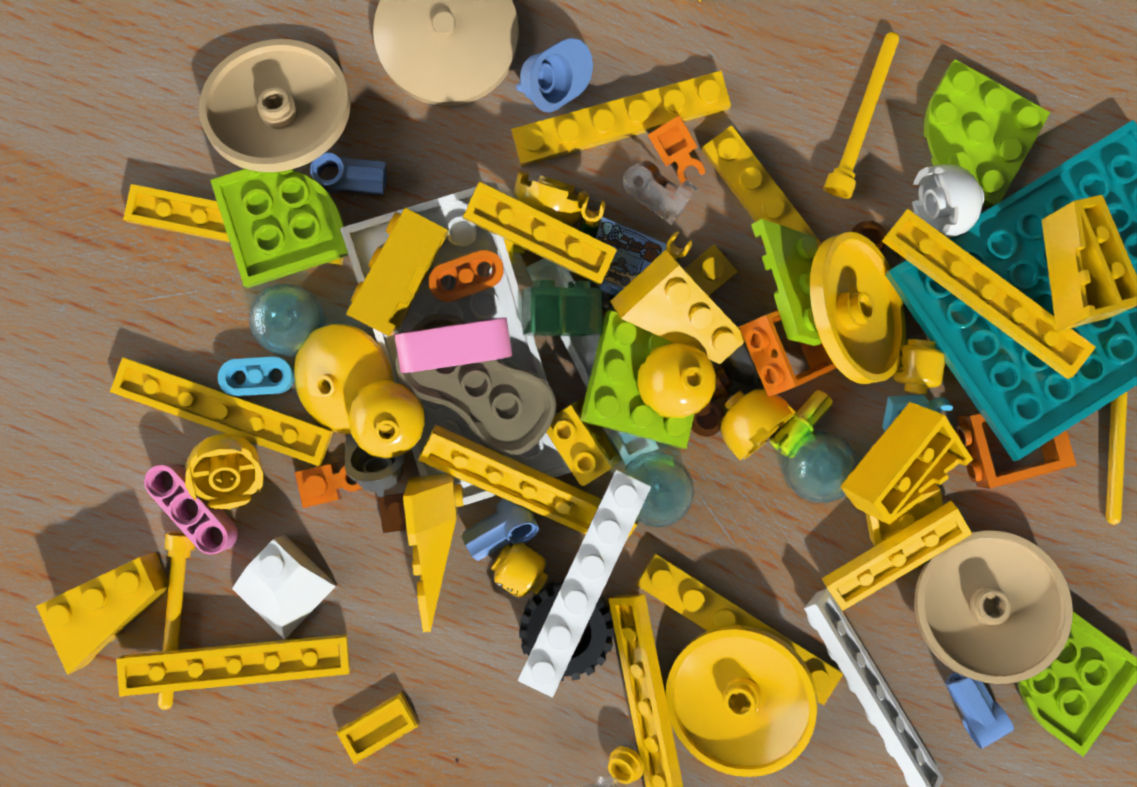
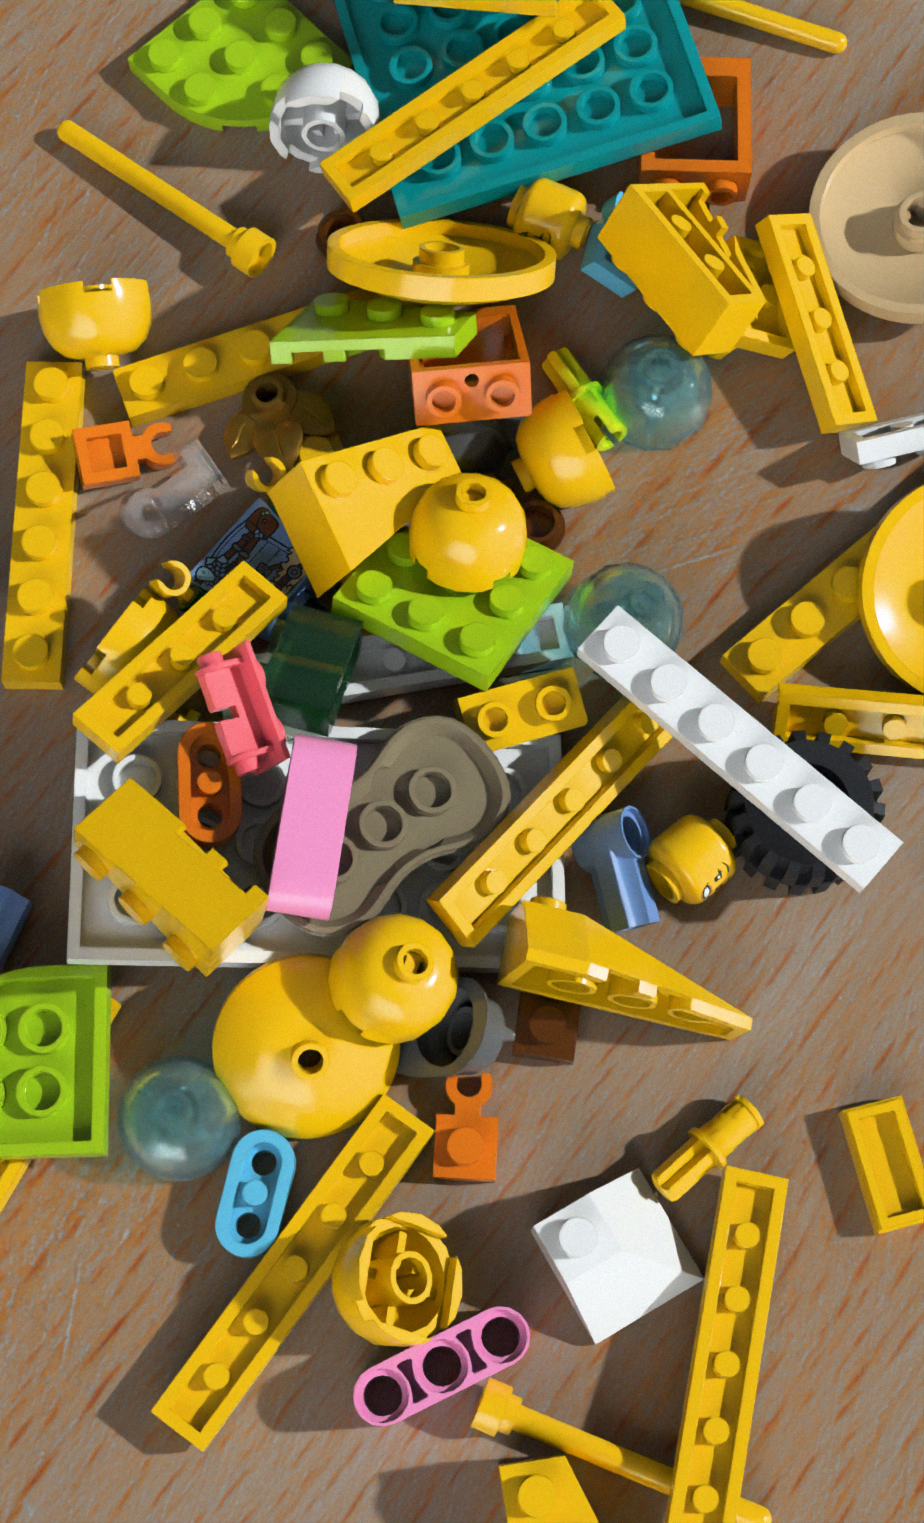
camera: 75 degrees left, 15 degrees down
(356, 623) = (707, 1148): none -> yellow axle
(527, 272) = (254, 735): none -> coral hinge
(724, 240) = (278, 425): none -> pearl gold plate
(757, 104) = (96, 320): none -> yellow cylinder

